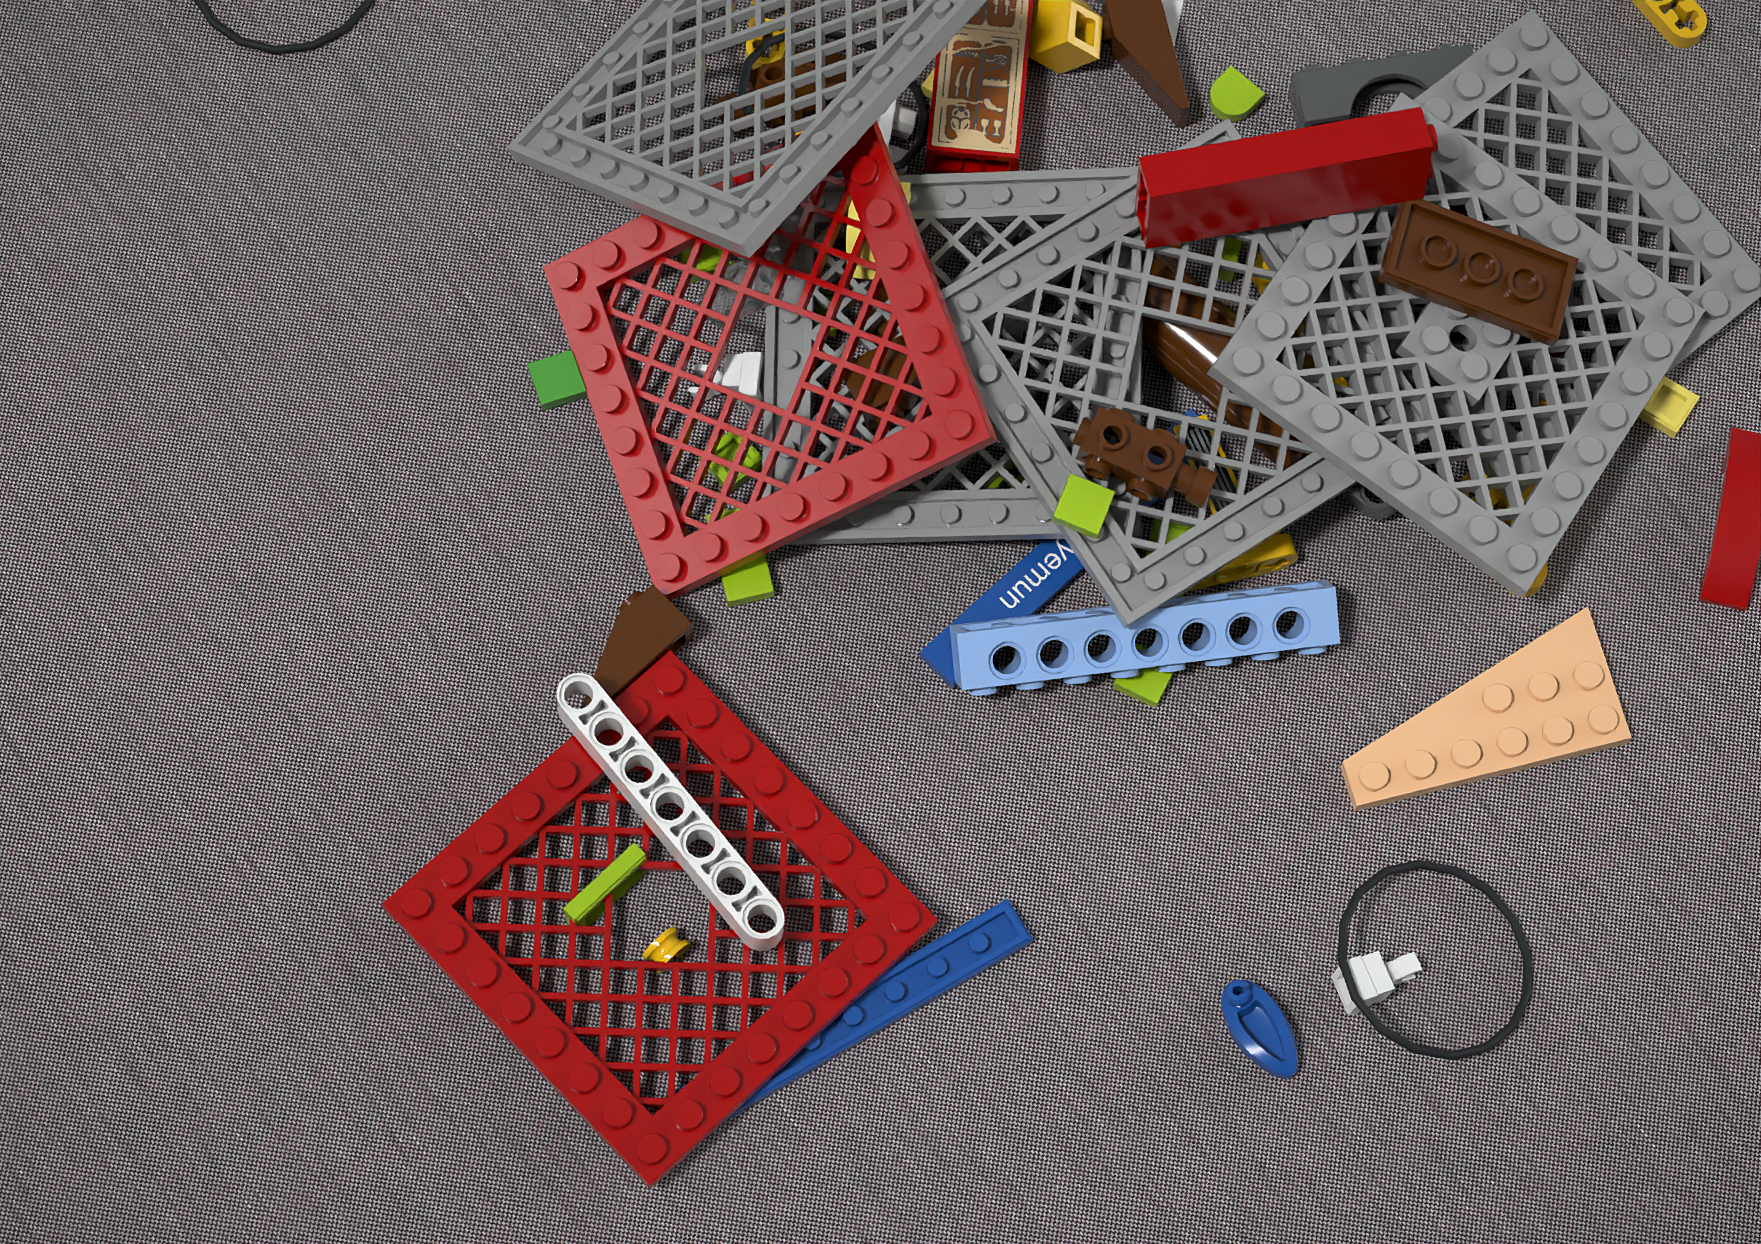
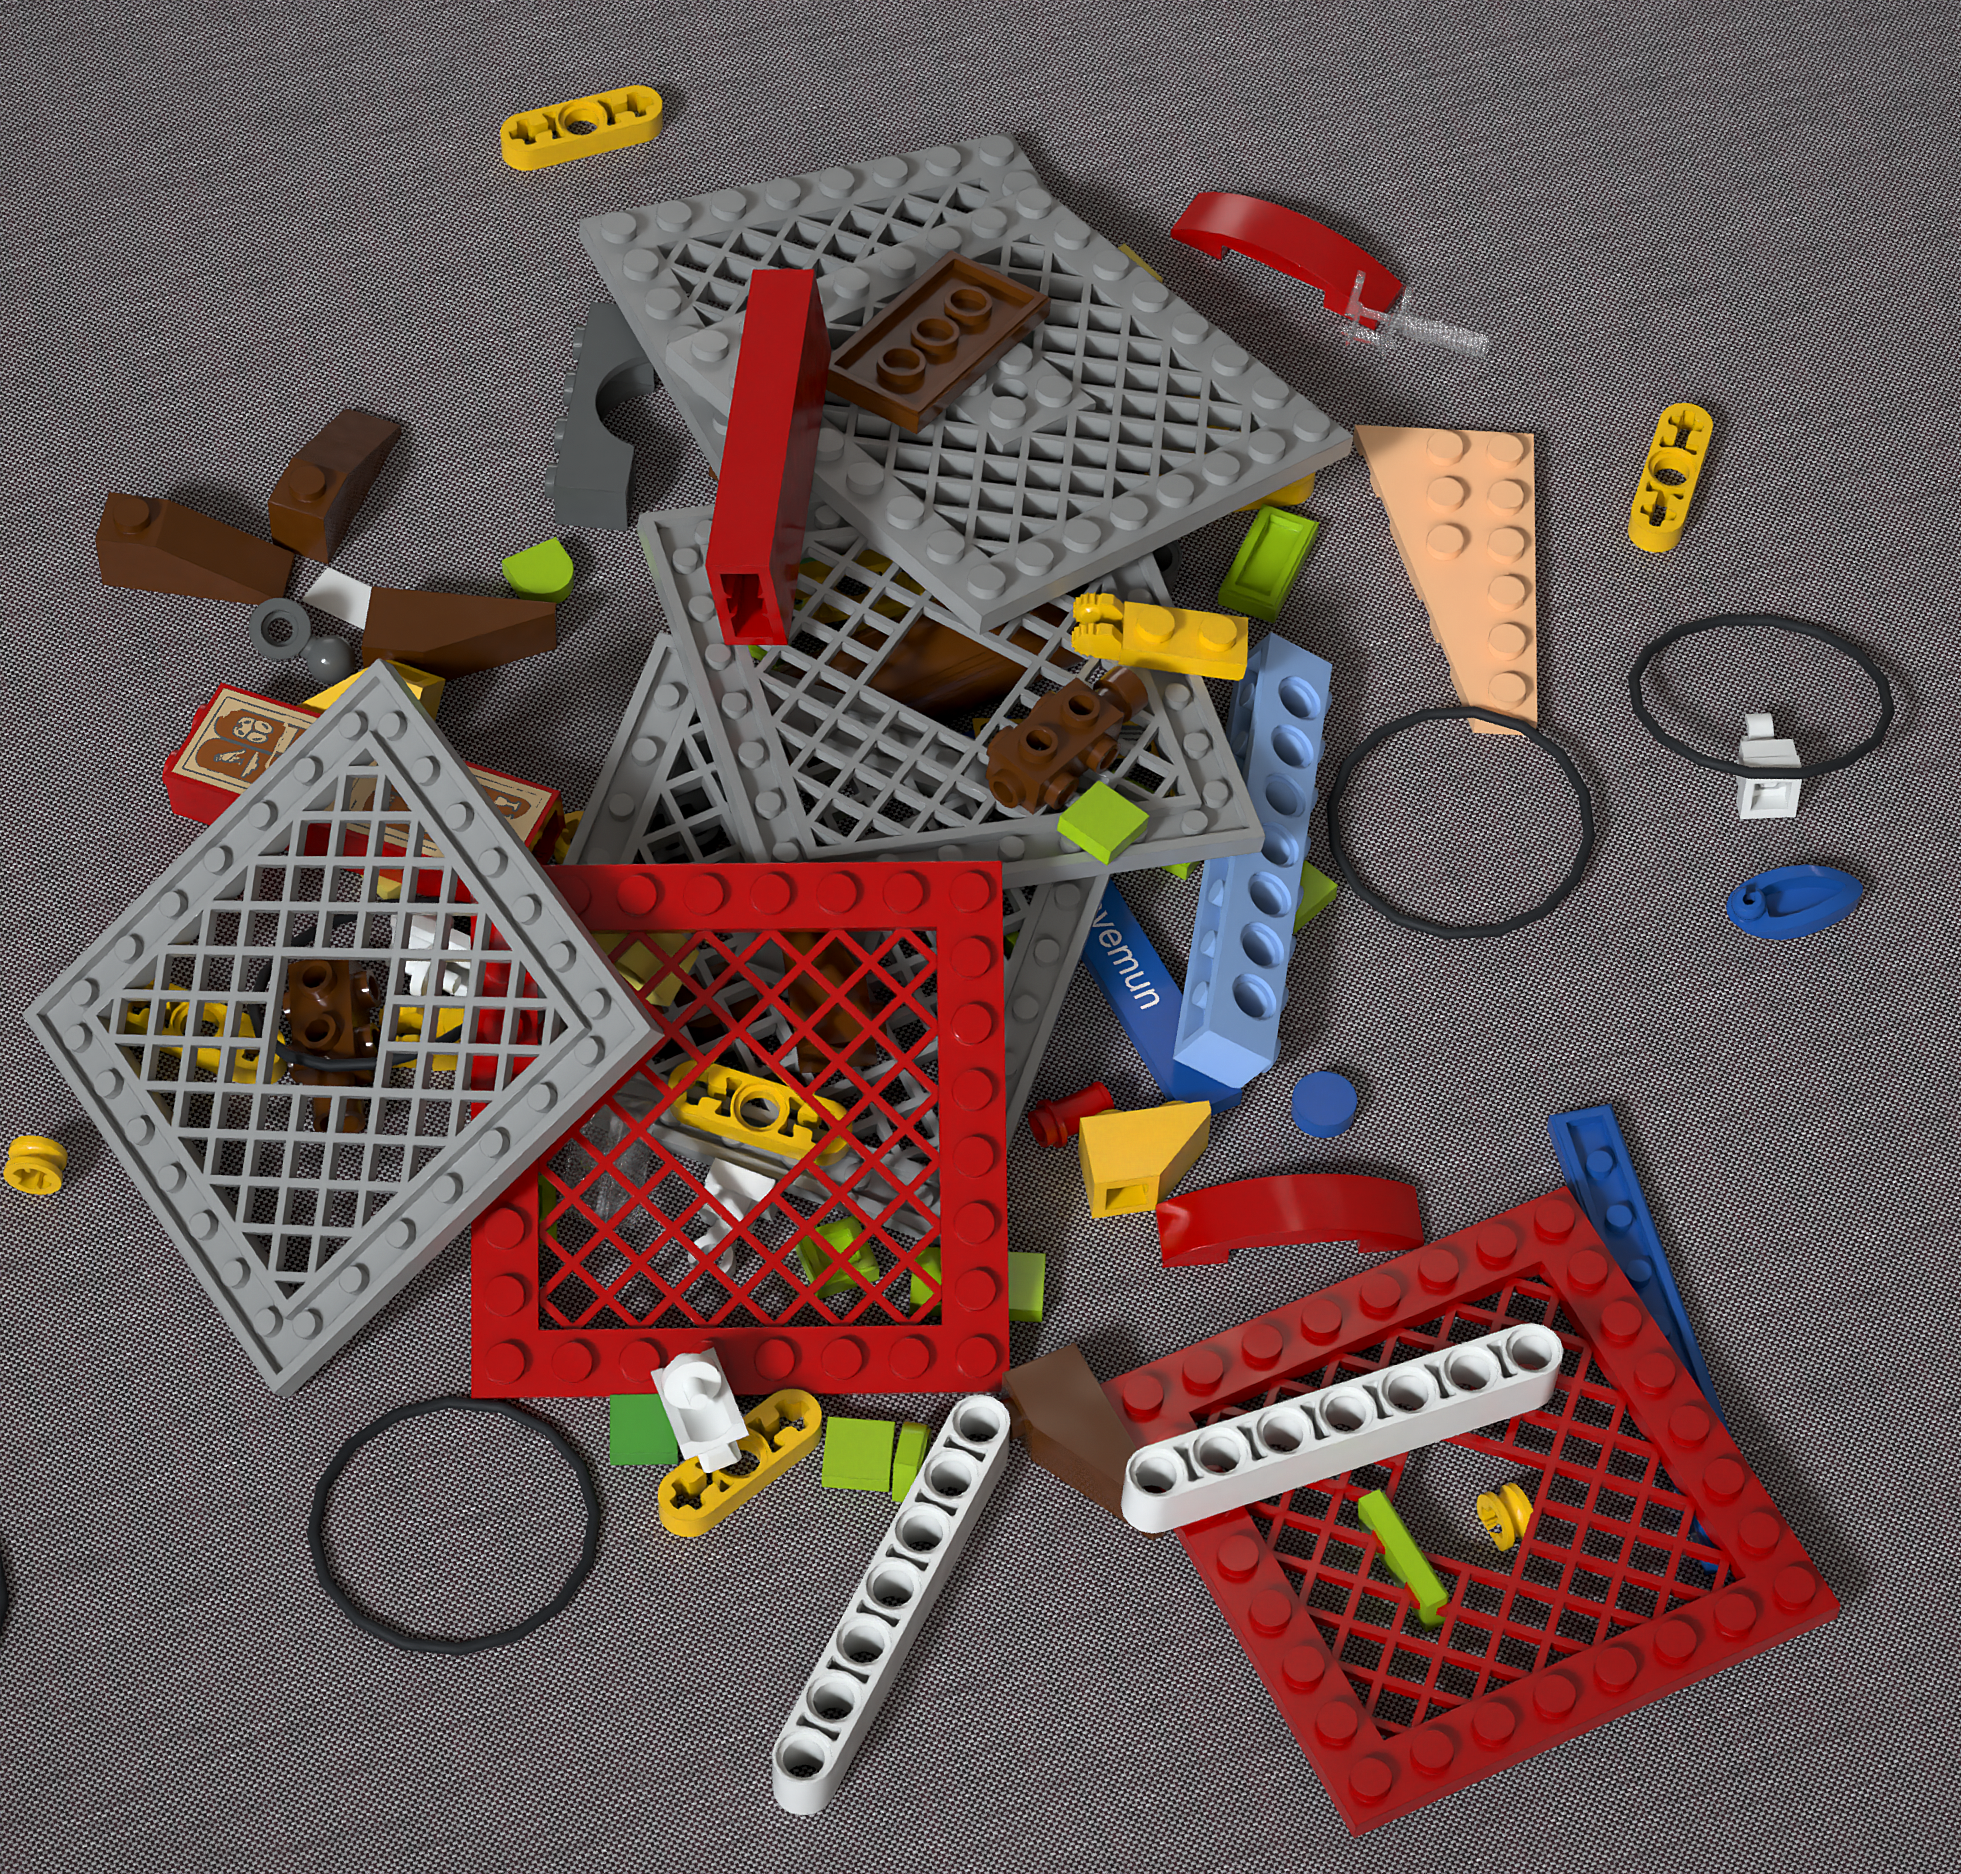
camera: 70 degrees left, 15 degrees down
(431, 374) = (485, 1642): none -> black piece
(451, 555) = (887, 1629): none -> white beam
(564, 399) = (701, 1409): none -> white hips
(581, 518) = (858, 1454): none -> lime tile
(582, 550) = (909, 1457): none -> lime tile
(585, 453) = (762, 1426): none -> yellow beam
(786, 335) = (771, 1138): none -> yellow beam
(861, 747) = (1288, 1211): none -> red slope
(871, 631) = (1139, 1155): none -> yellow slope
(894, 576) = (1057, 1120): none -> red pin
(966, 743) = (1323, 1104): none -> blue tile
(1247, 868) = (1471, 931): none -> black piece
(1274, 507) = (1160, 637): none -> yellow hinge
(1436, 581) = (1268, 563): none -> lime tile
(1669, 860) = (1666, 456): none -> yellow beam
(1700, 619) = (1410, 326): none -> clear piece

